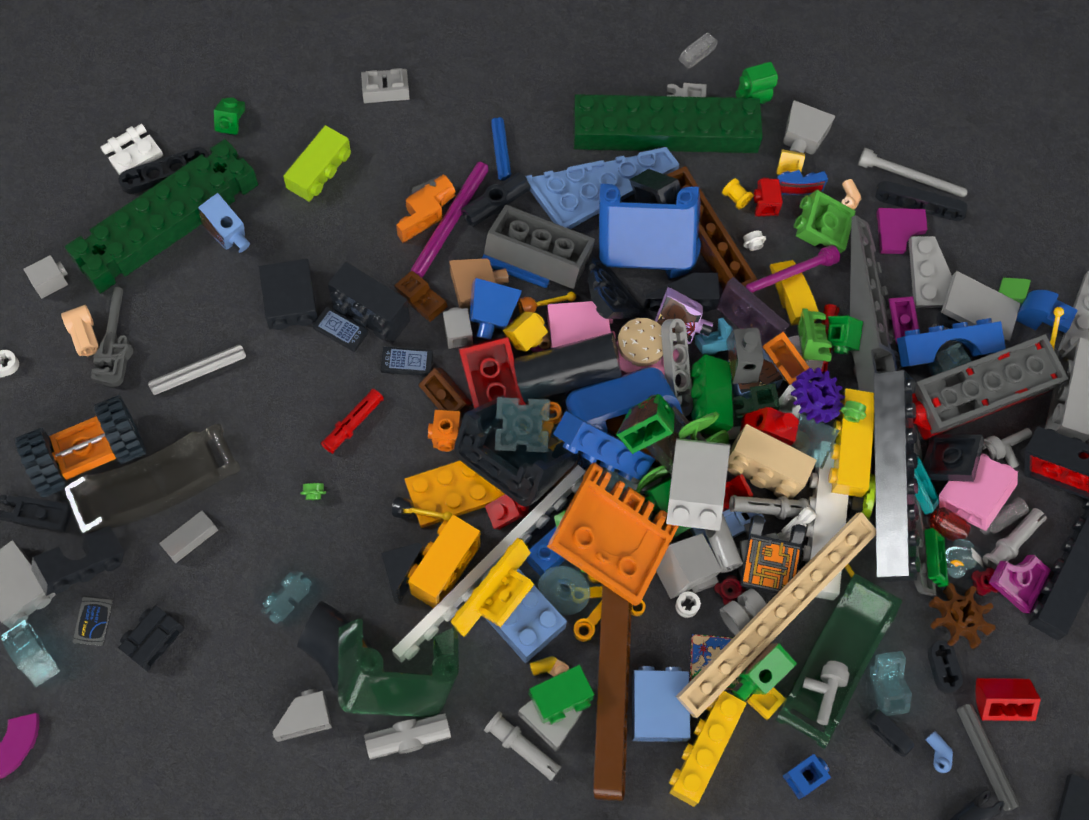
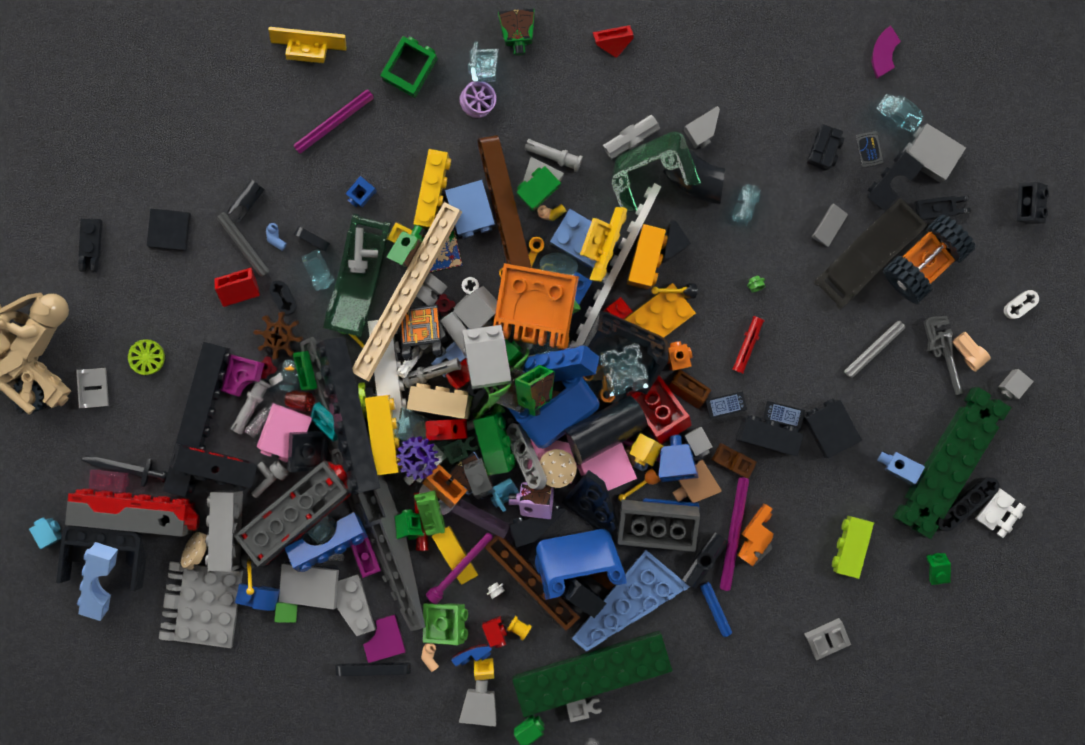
camera: 165 degrees right, 20 degrees up
(854, 411) = (388, 451): bright green plate -> none
(870, 159) = (421, 696): light grey piece -> none

